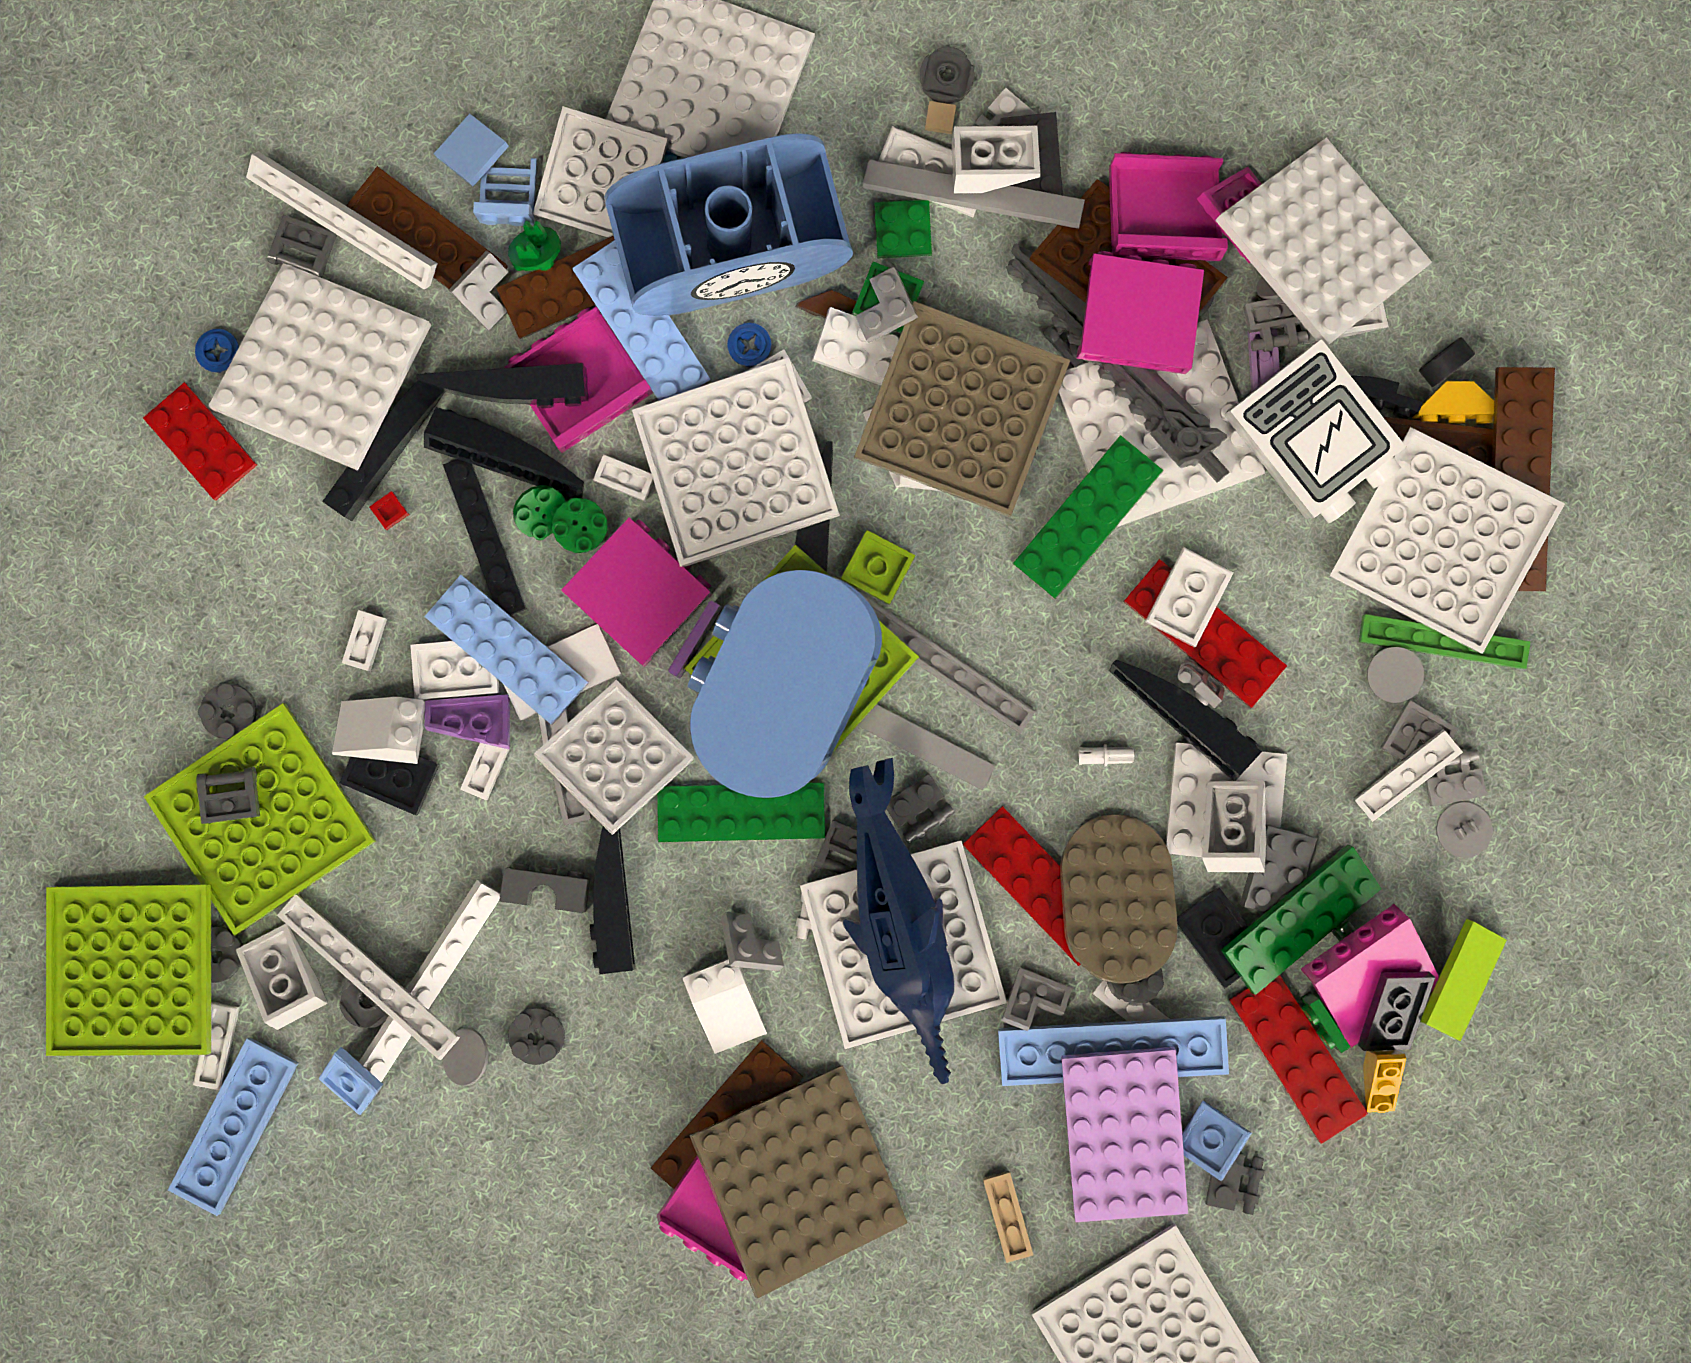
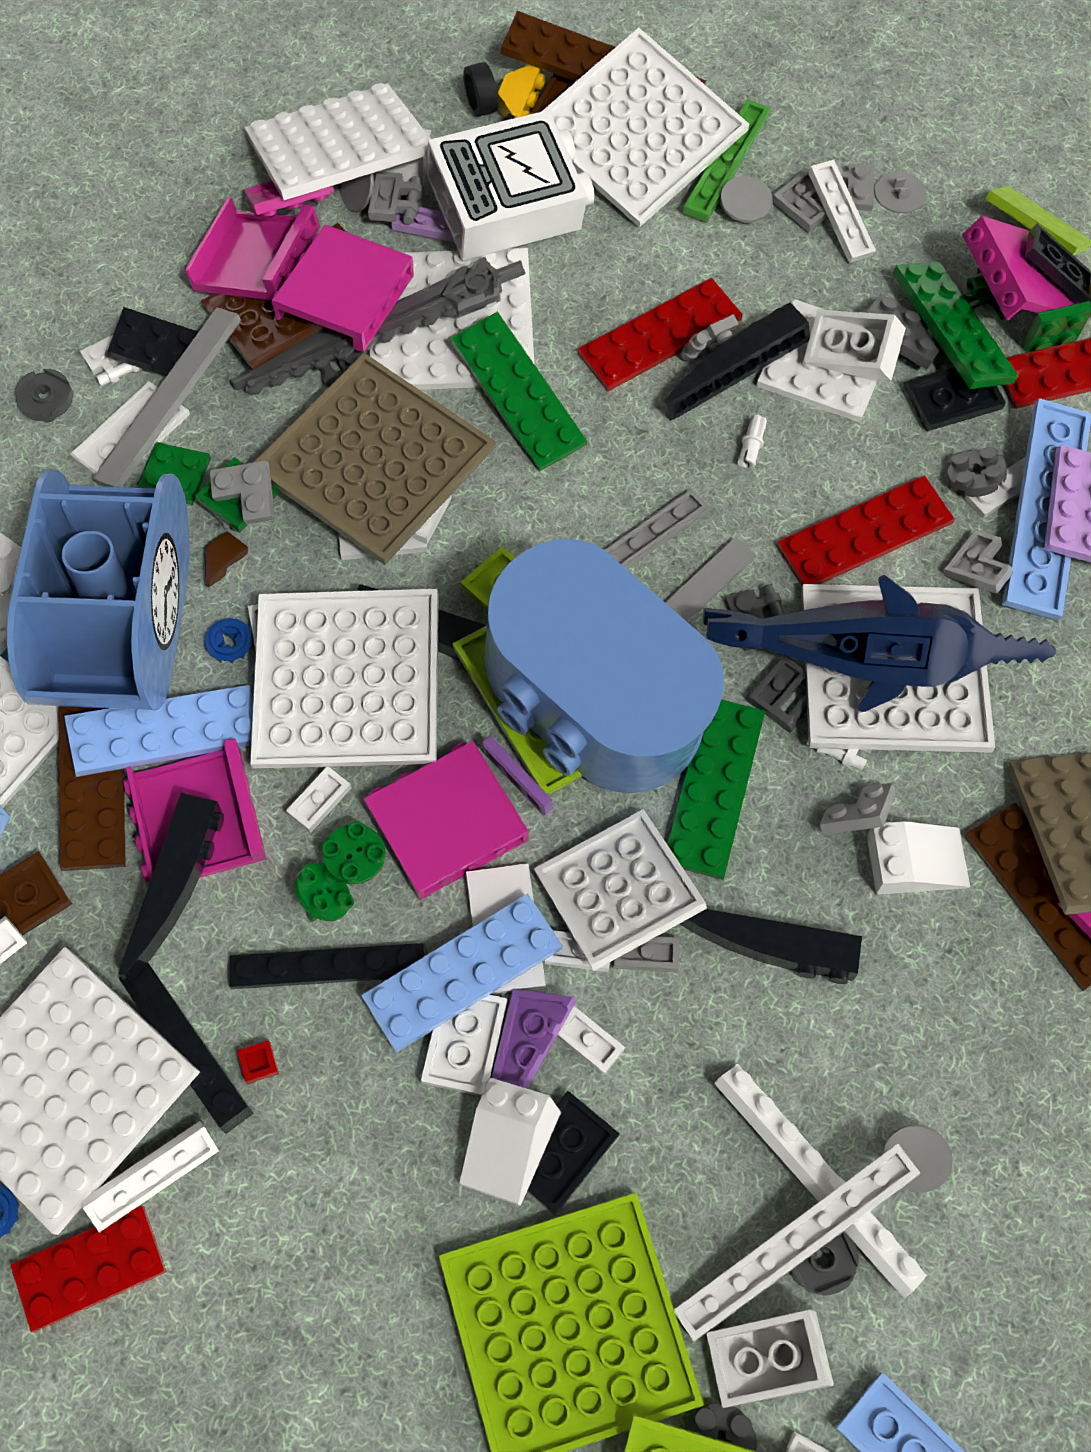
camera: 80 degrees left, 20 degrees down
(212, 711) = (406, 1324): dark grey plate -> none
(231, 804) = (542, 1356): dark grey plate -> none
(275, 461) = (149, 1176): none -> white plate
(350, 1081) = (918, 1304): light blue tile -> none
(364, 640) = (397, 1136): white plate -> none
(474, 290) = (51, 887): plate -> none
(497, 451) = (240, 918): black slope -> none
(520, 883) = (732, 1036): dark grey arch -> none
(523, 1046) = (893, 1081): dark grey plate -> none
(534, 248) = (35, 814): green plate -> none
(846, 349) = (275, 544): white plate -> none
(940, 117) = (81, 413): tan tile -> none
(993, 157) = (142, 362): white slope -> none
(1118, 899) = (898, 463): dark tan plate -> none
(1189, 597) = (623, 330): white tile -> none

